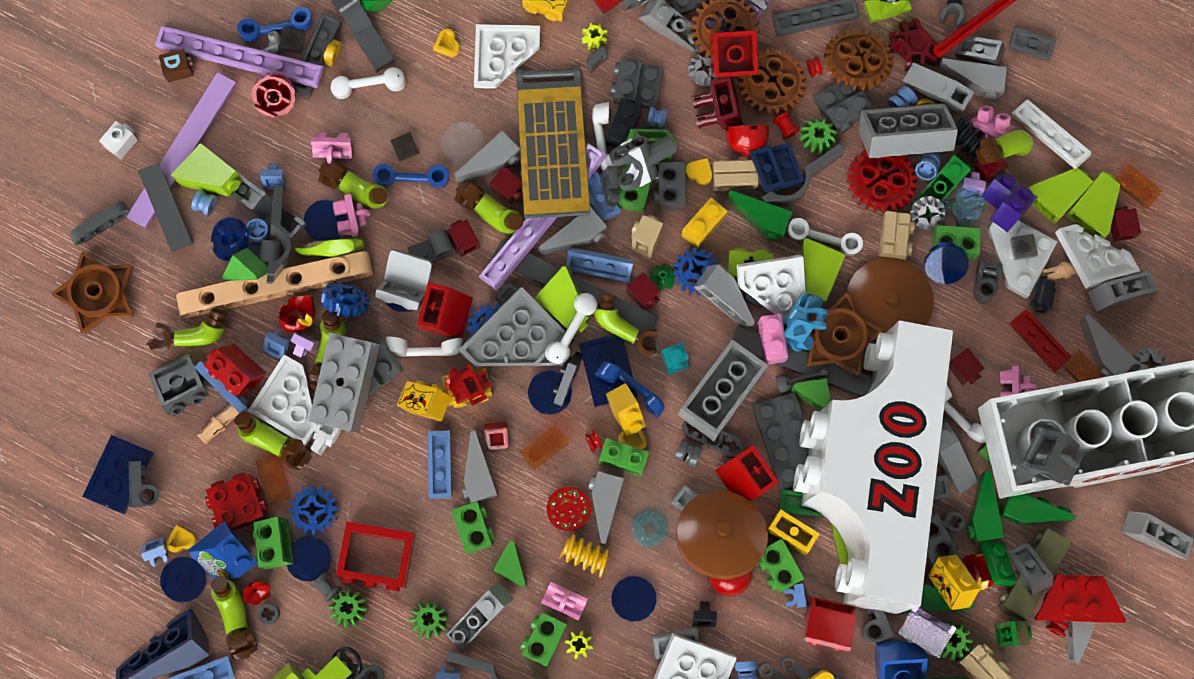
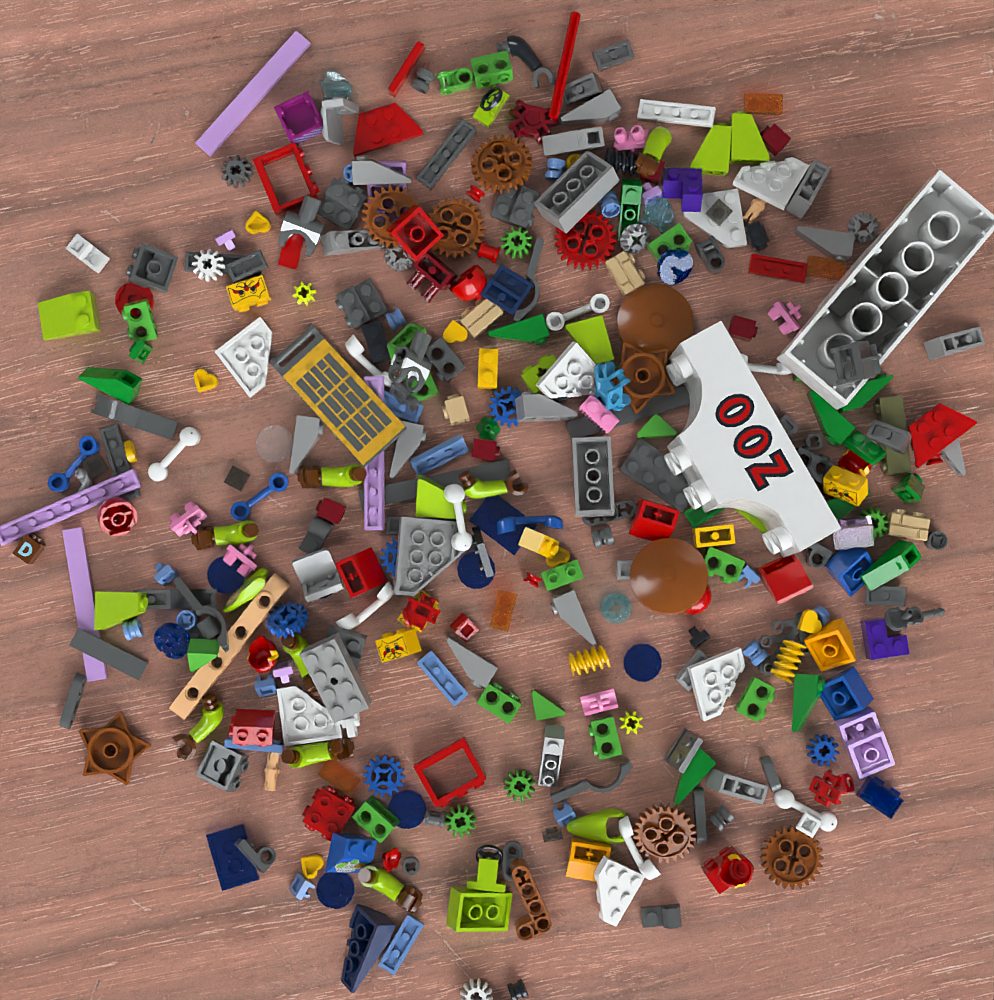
camera: 40 degrees left, 10 degrees up
(119, 139) = (35, 632): white brick -> none
(507, 185) = (331, 450): dark red brick -> none
(568, 509) = (552, 638): red tile -> none
(596, 59) = (319, 309): dark grey tile -> none
(675, 358) = (542, 479): teal brick -> none
(785, 382) = (629, 435): dark grey hinge -> none
(954, 461) = (784, 400): light grey slope -> none

